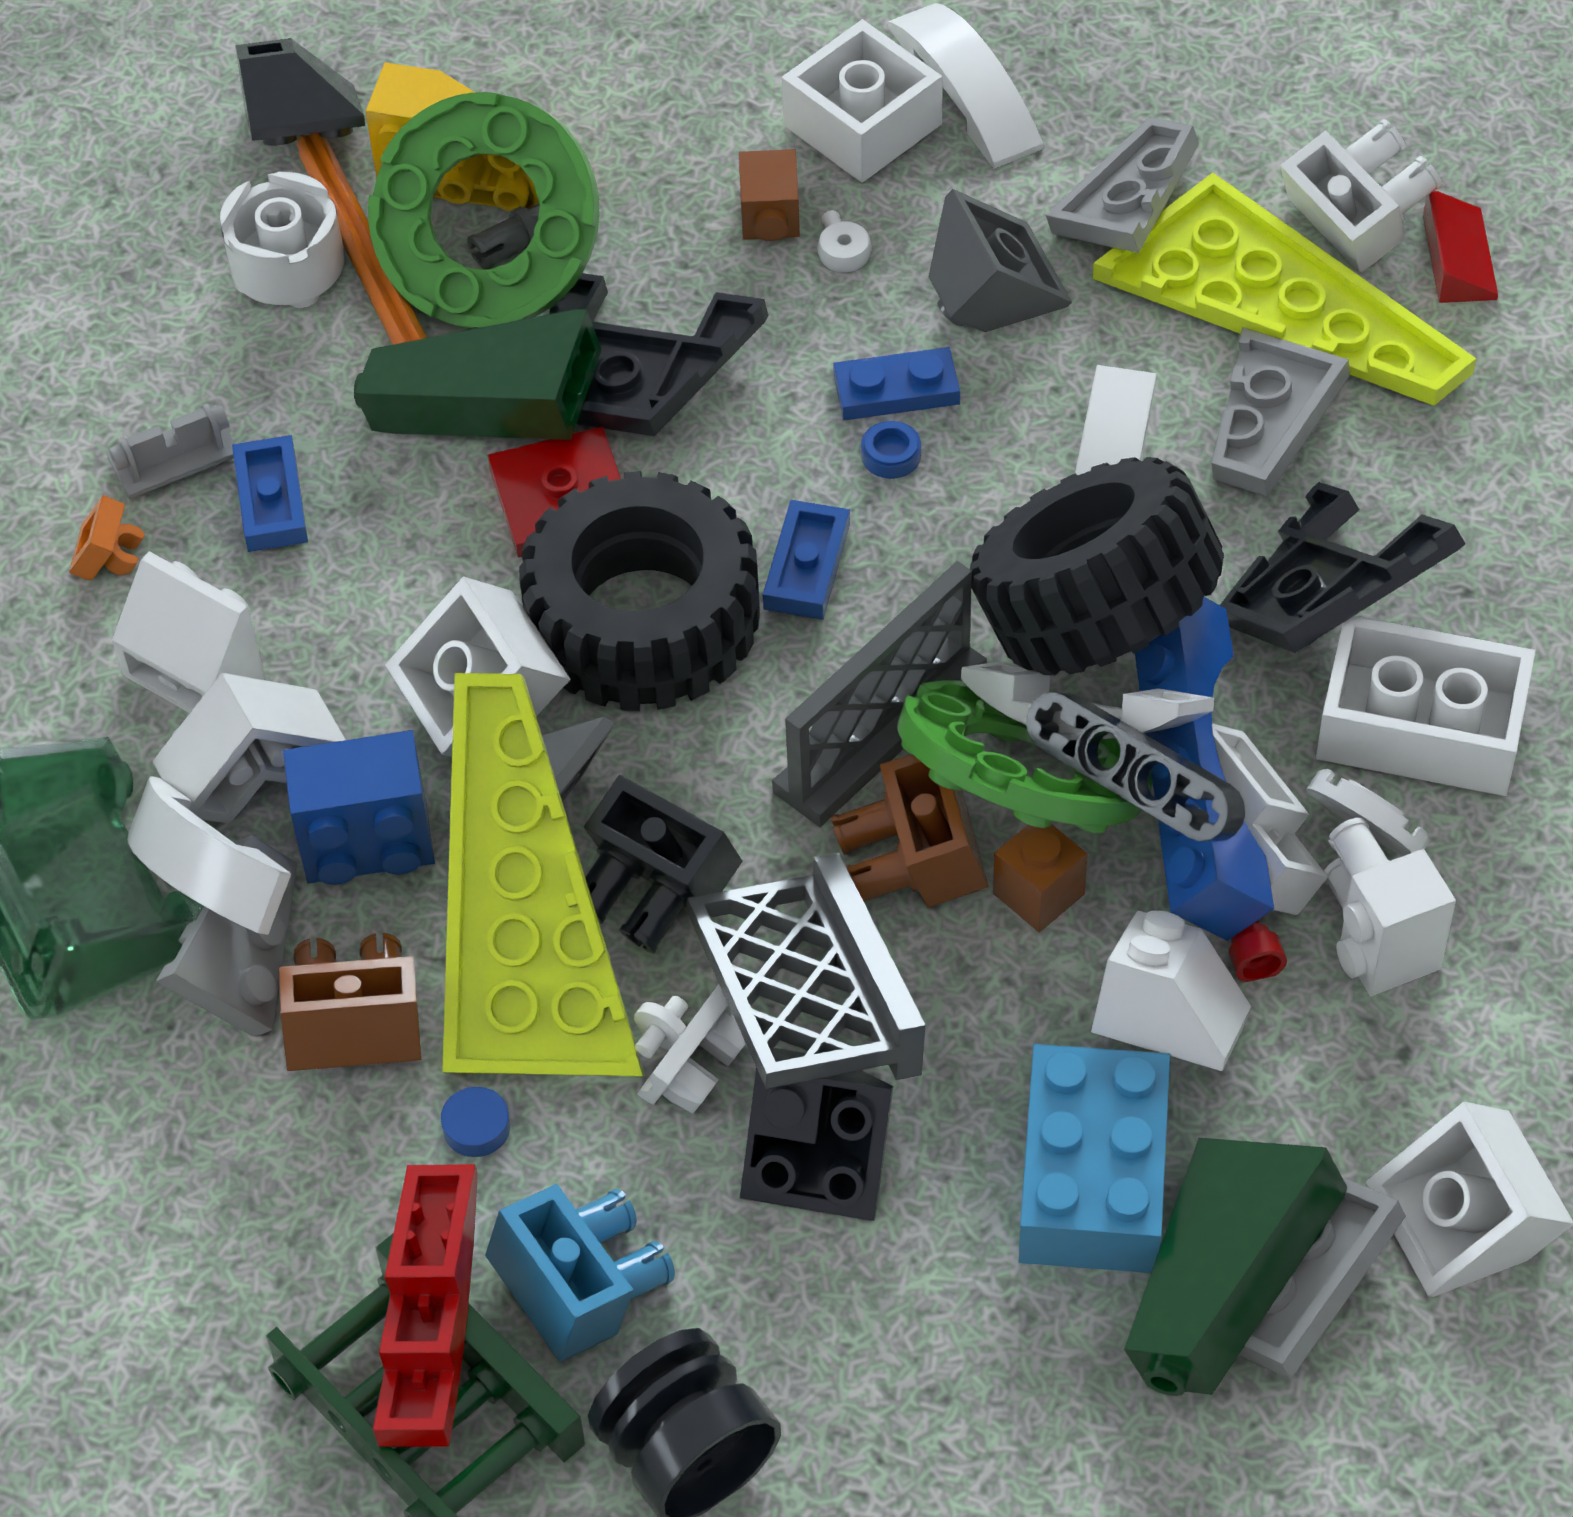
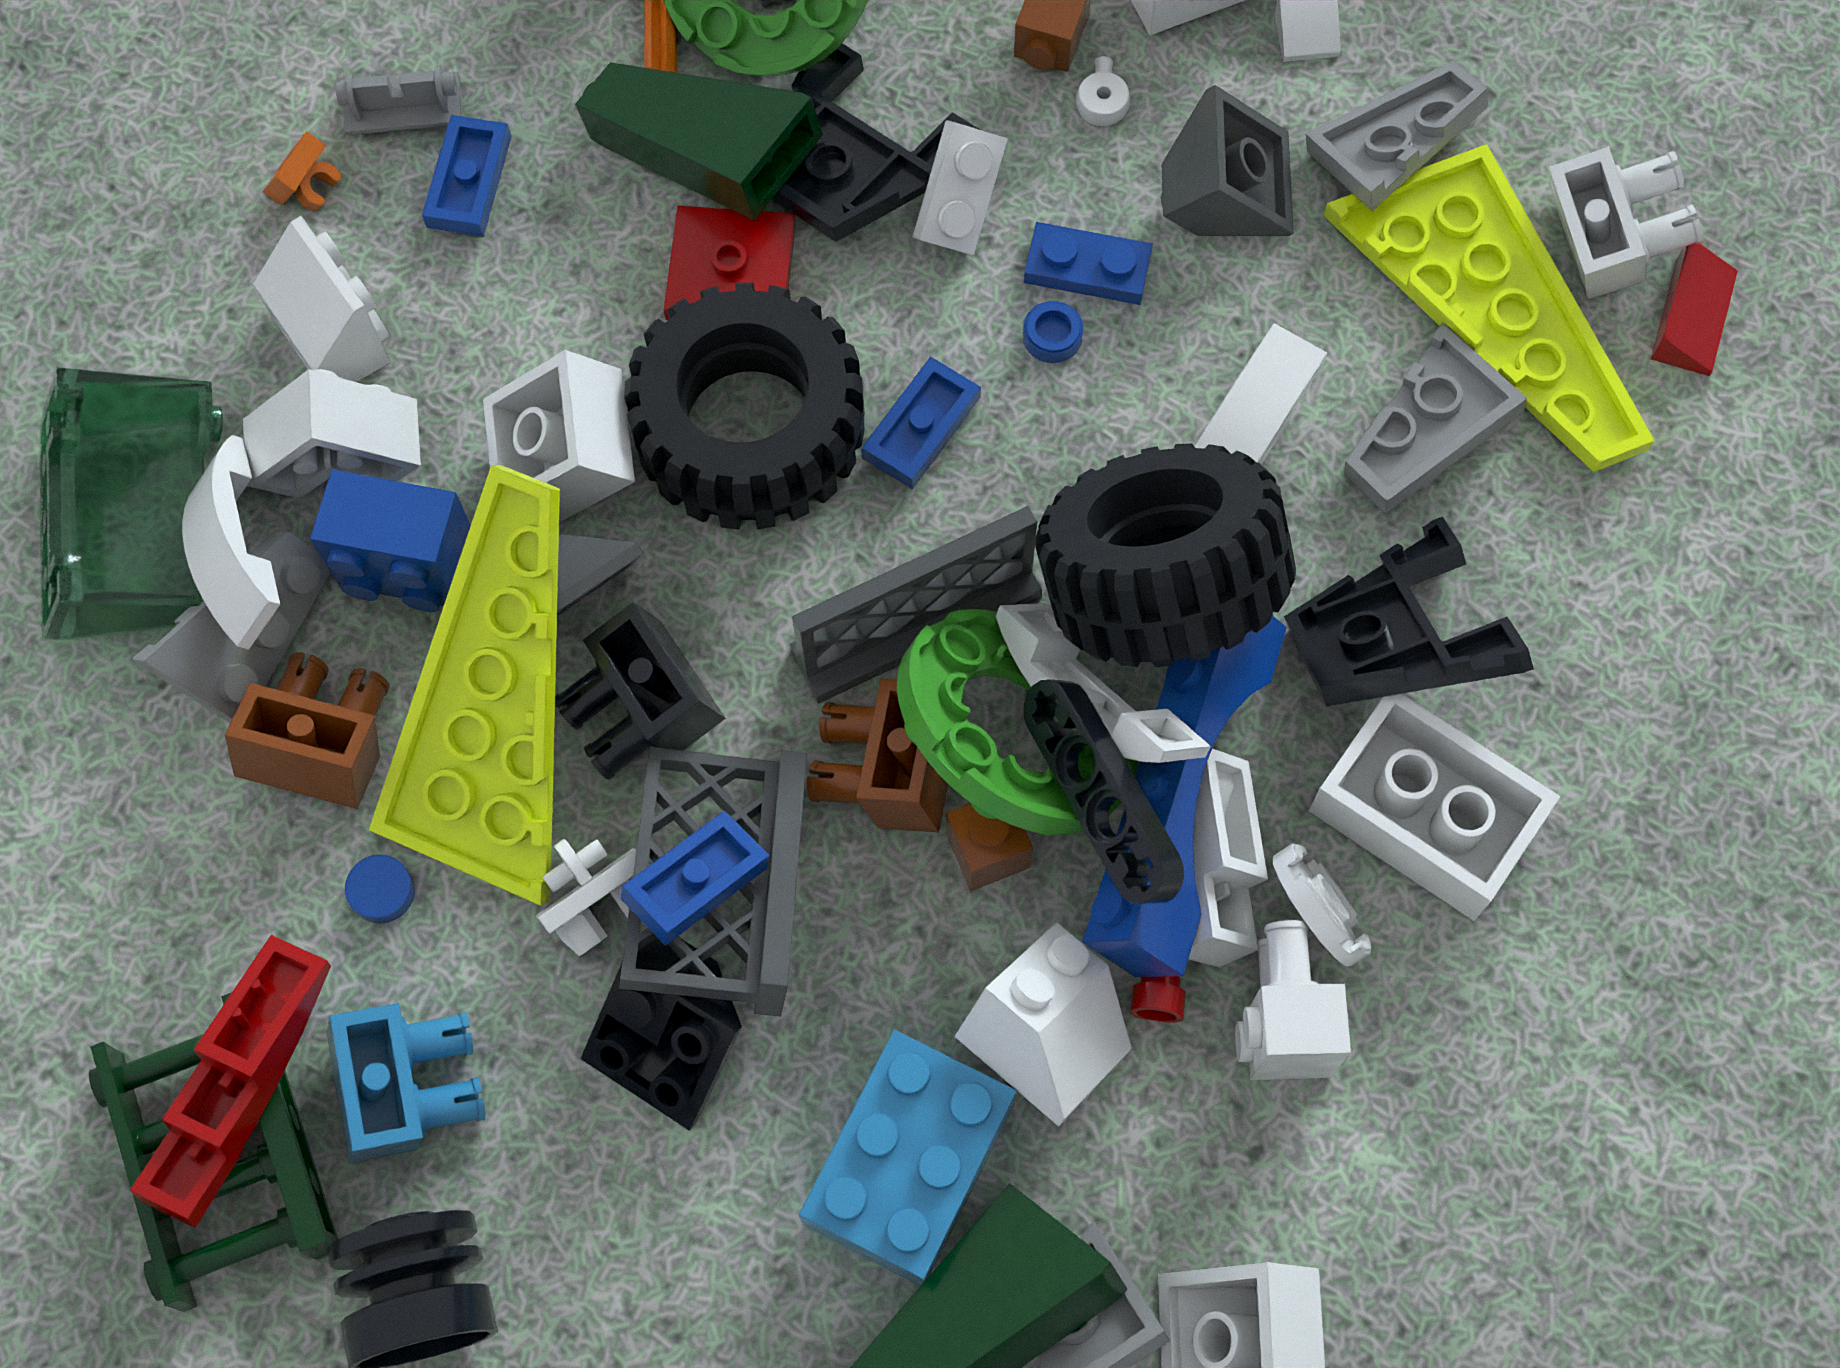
camera: 20 degrees right, 15 degrees up
(753, 351) = (959, 187): none -> white plate
(793, 971) = (694, 877): none -> blue plate

